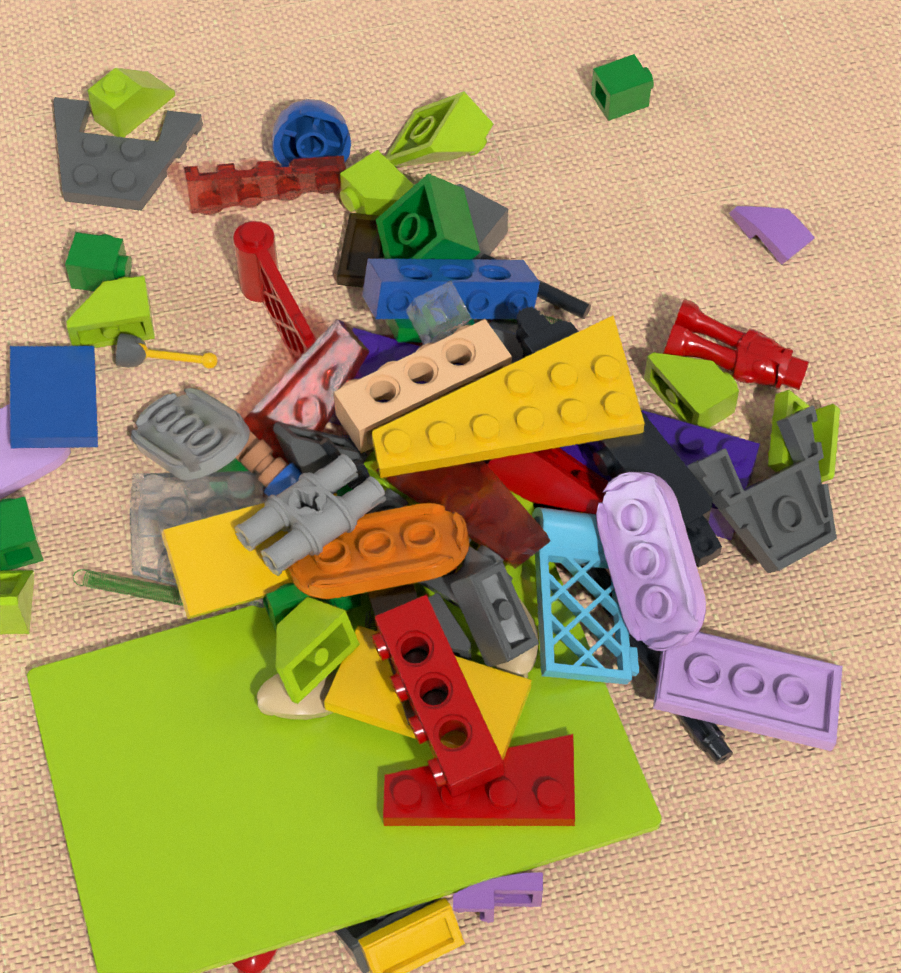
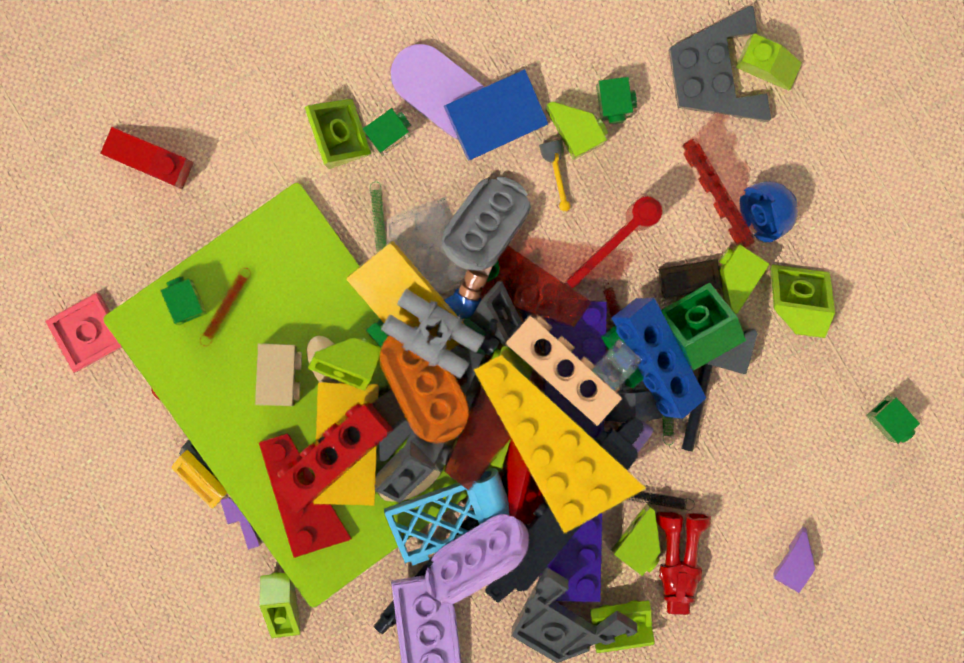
camera: 75 degrees right, 30 degrees up
(128, 858) = (183, 300): none -> green brick
(183, 821) = (225, 307): none -> piece
(291, 761) = (277, 375): none -> tan brick
(646, 881) = (279, 605): none -> lime slope
(655, 350) = (658, 500): none -> black piece

